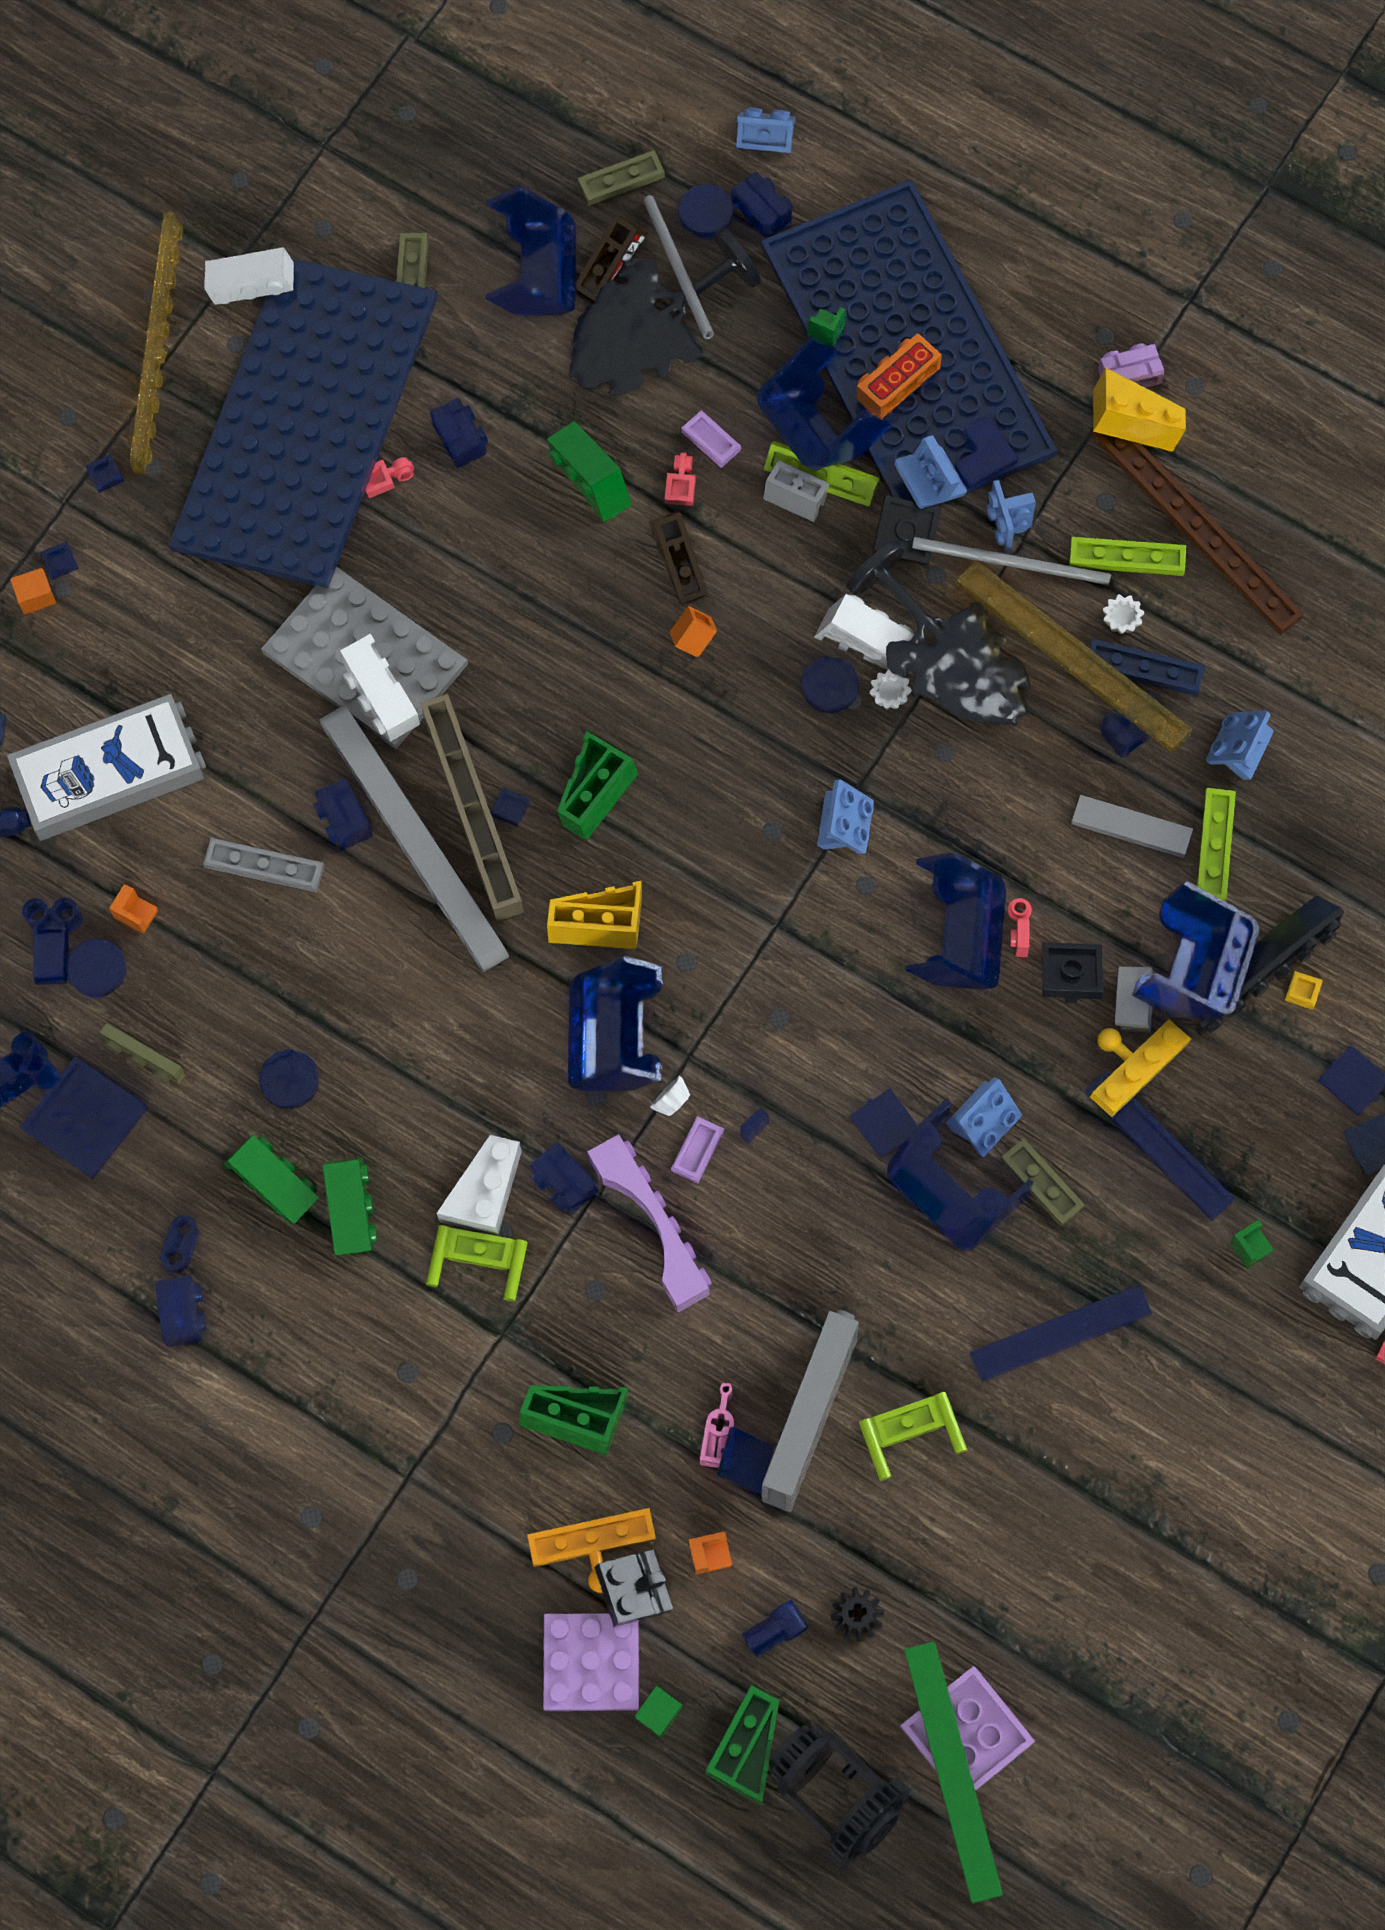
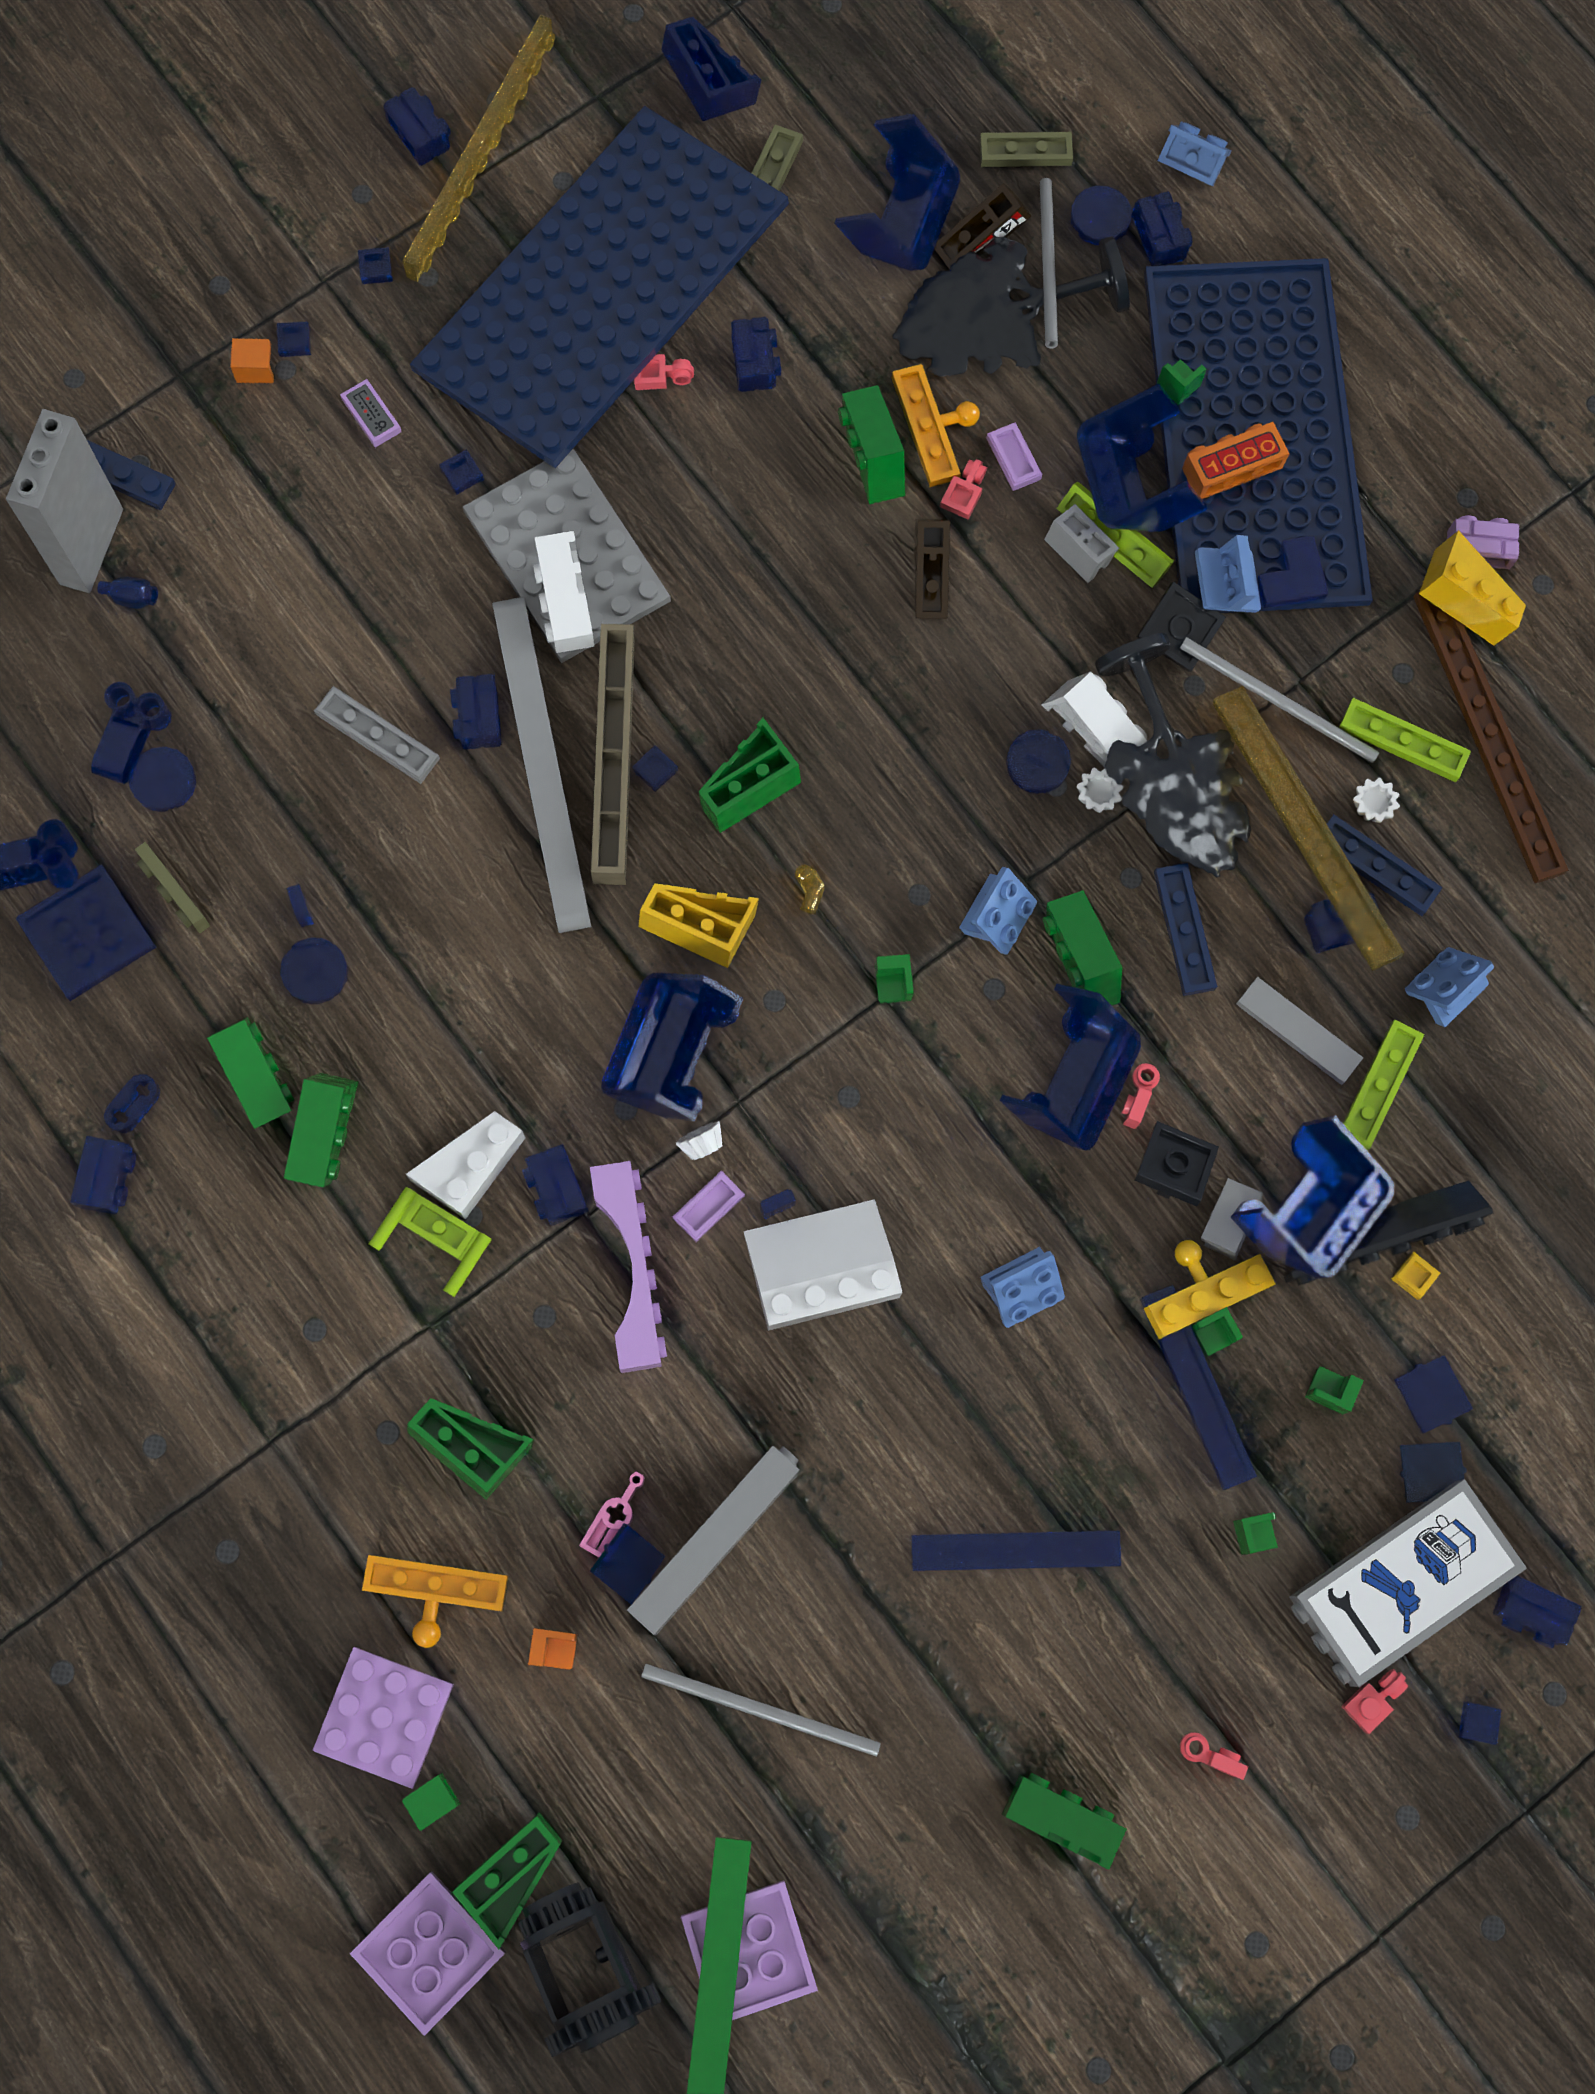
camera: 10 degrees right, 5 degrees up
(94, 342) = (417, 126): none -> clear blue brick
(106, 766) = (254, 571): brick -> none
(132, 910) = (223, 731): orange panel -> none
(150, 598) = (370, 413): none -> tile
(247, 620) = (461, 472): none -> clear blue tile
(249, 276) = (601, 112): white brick -> none
(257, 1029) = (300, 905): none -> clear blue tile
(324, 209) = (707, 72): none -> clear blue wedge
(629, 439) = (928, 425): none -> light orange plate
(633, 1588) = (456, 1656): hinge -> none
(681, 856) = (812, 886): none -> clear yellow arm
(693, 631) = (916, 652): orange panel -> none
(703, 1833) = (427, 1953): none -> lavender plate
(779, 906) = (894, 978): none -> green panel
(782, 1625) = (597, 1757): clear blue piece -> none
(811, 1162) = (822, 1264): none -> white slope
(866, 1620) = (675, 1766): black gear -> none
(884, 1123) = (918, 1251): clear blue piece -> none
(901, 1539) = (761, 1710): none -> light grey piece
(909, 1423) = (815, 1587): lime plate -> none
(926, 821) = (1084, 946): none -> green wedge
(939, 1197) = (942, 1355): clear blue windscreen -> none
(1005, 778) = (1185, 929): none -> dark blue plate
(1009, 514) = (1296, 650): medium blue bracket -> none
(1047, 1186) = (1058, 1380): olive plate -> none
(1157, 1094) = (1216, 1332): none -> green panel
(1183, 1530) = (1064, 1820): none -> green wedge
(1272, 1107) = (1334, 1390): none -> green panel
(1296, 1436) = (1224, 1761): none -> coral plate

